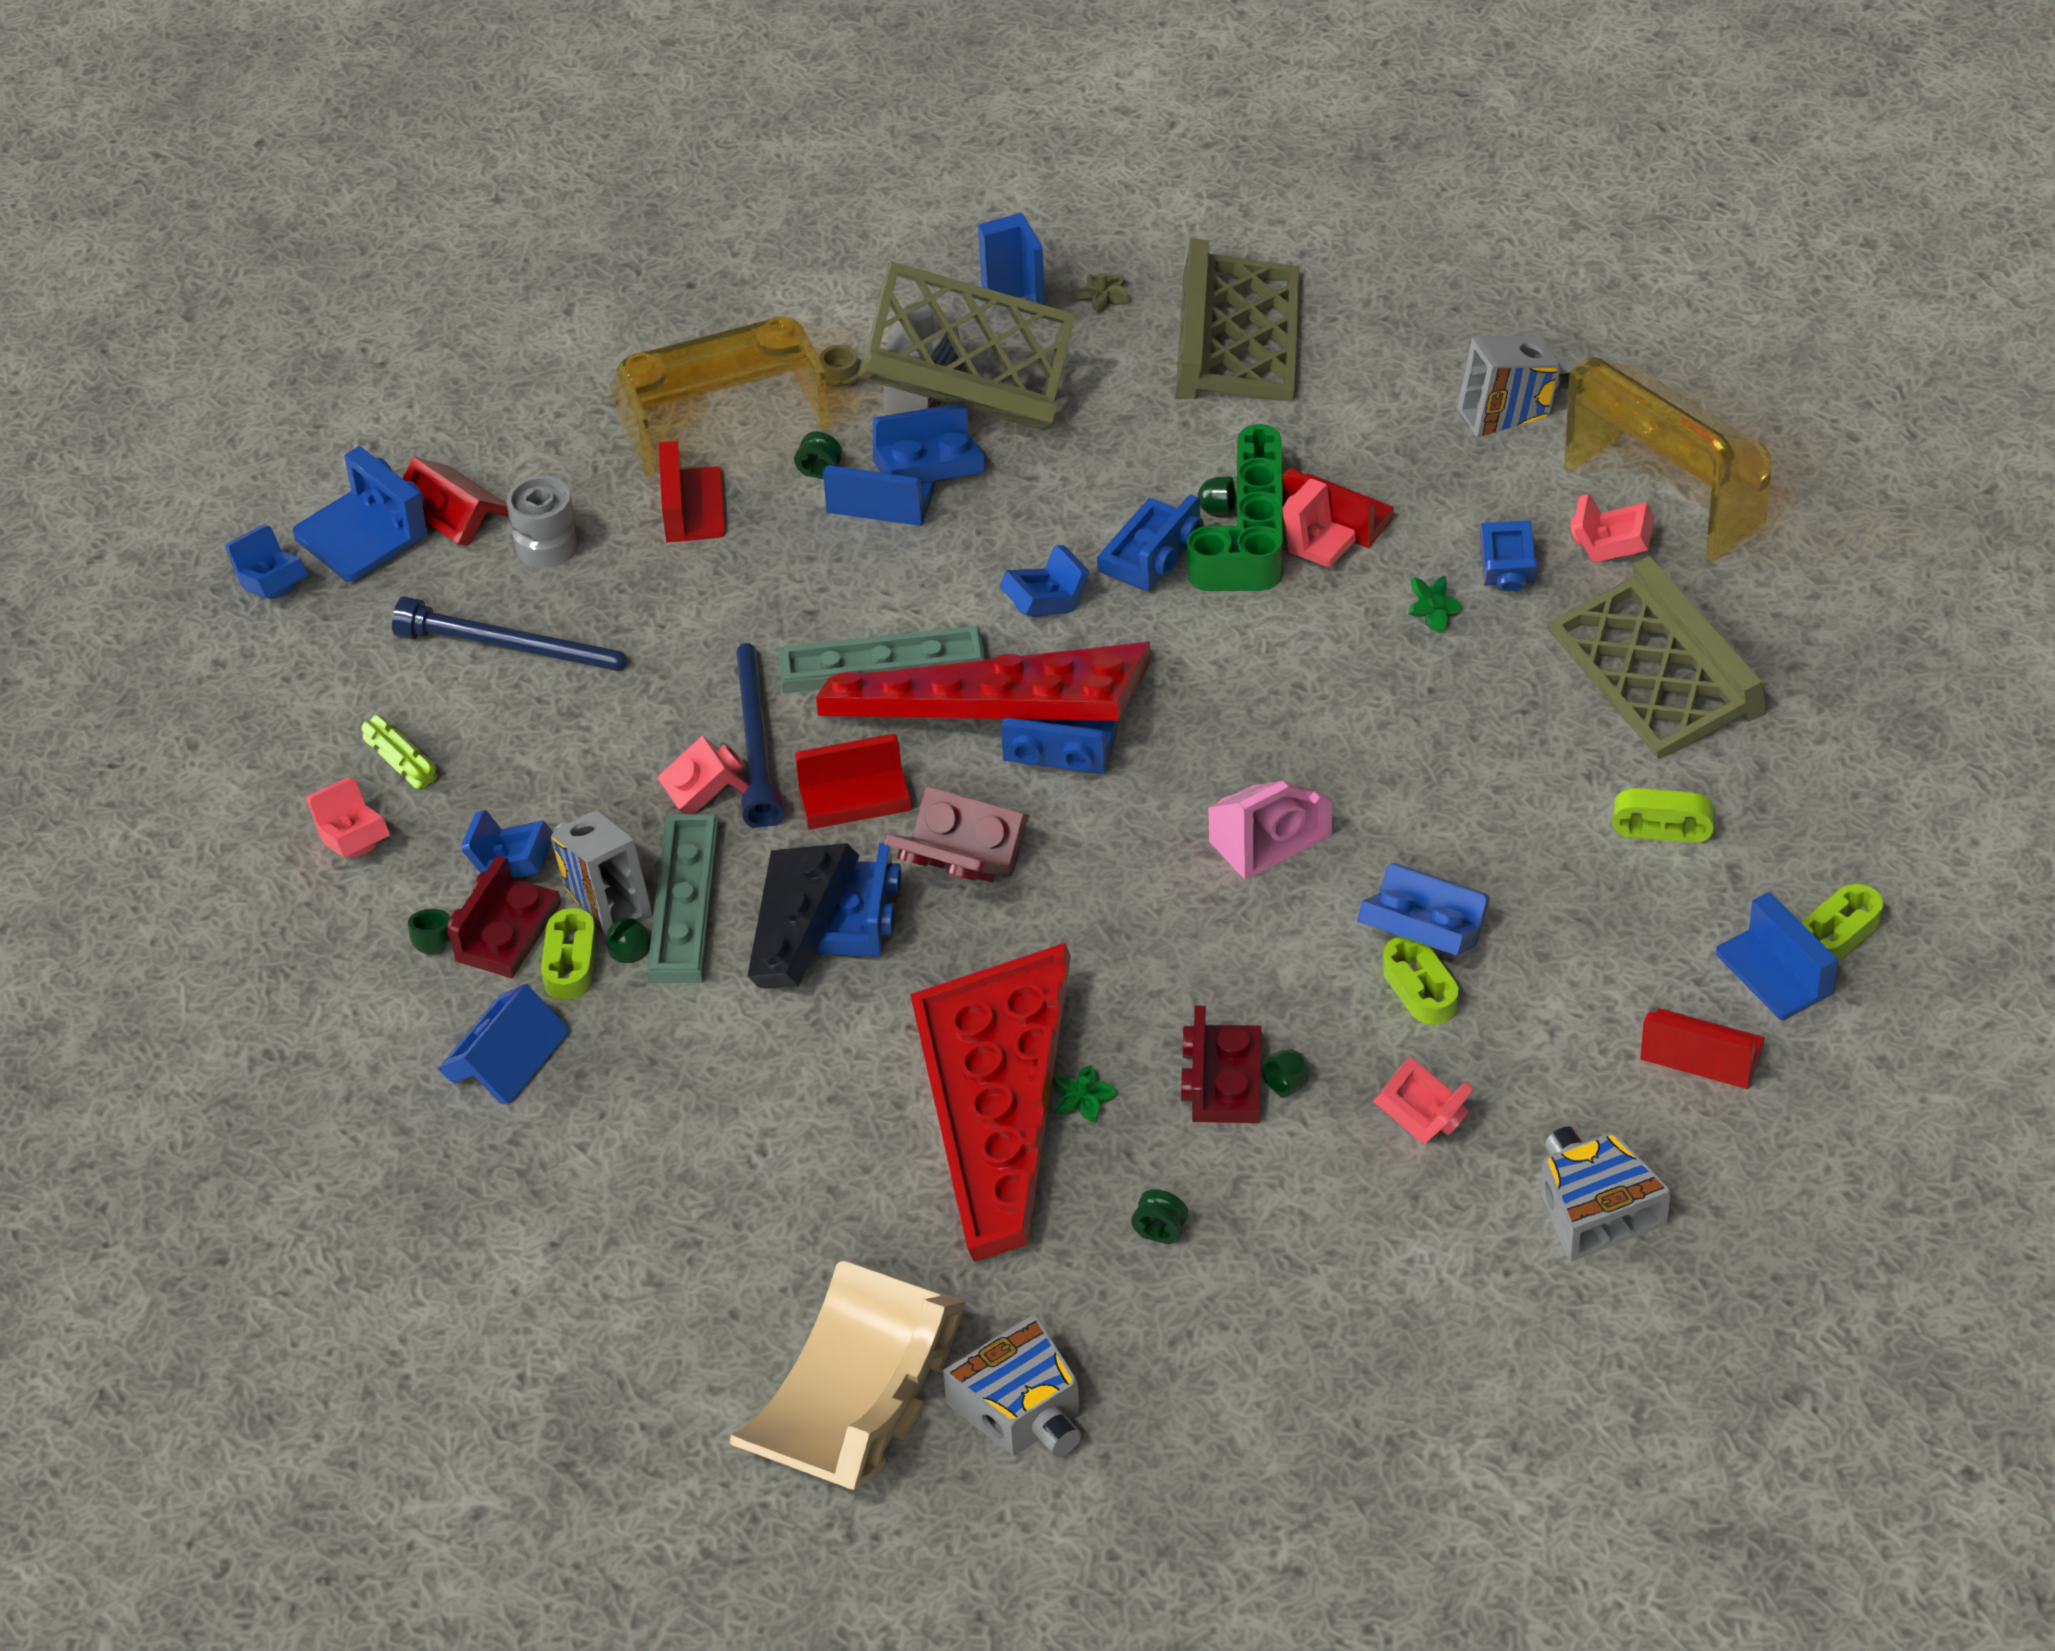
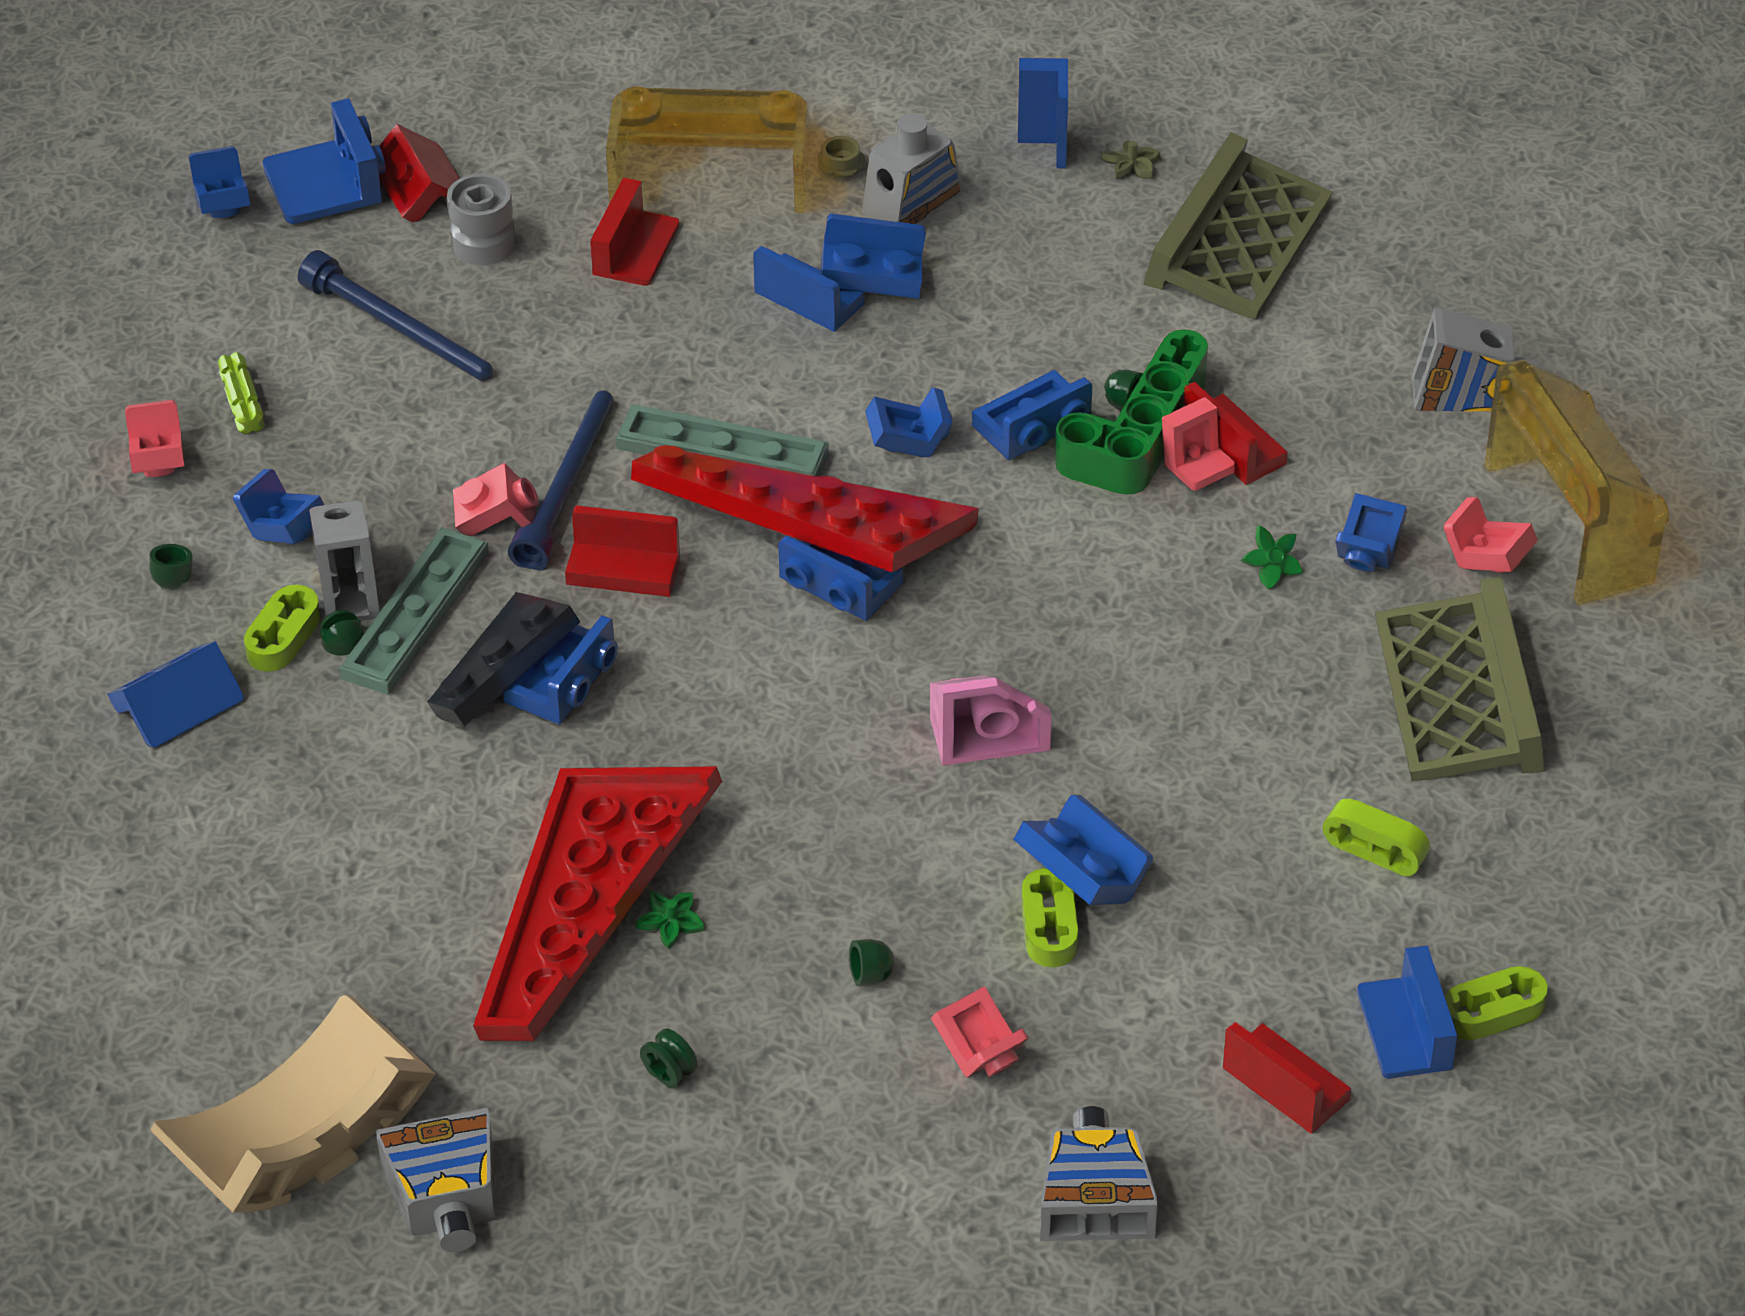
camera: 20 degrees right, 0 degrees up
(500, 920) = (237, 575): dark red bracket -> none
(819, 444) = (772, 232): dark green bush -> none
(956, 386) = (925, 208): olive fence -> none
(965, 833) = (688, 637): bracket -> none
(1223, 1071) = (808, 938): dark red bracket -> none

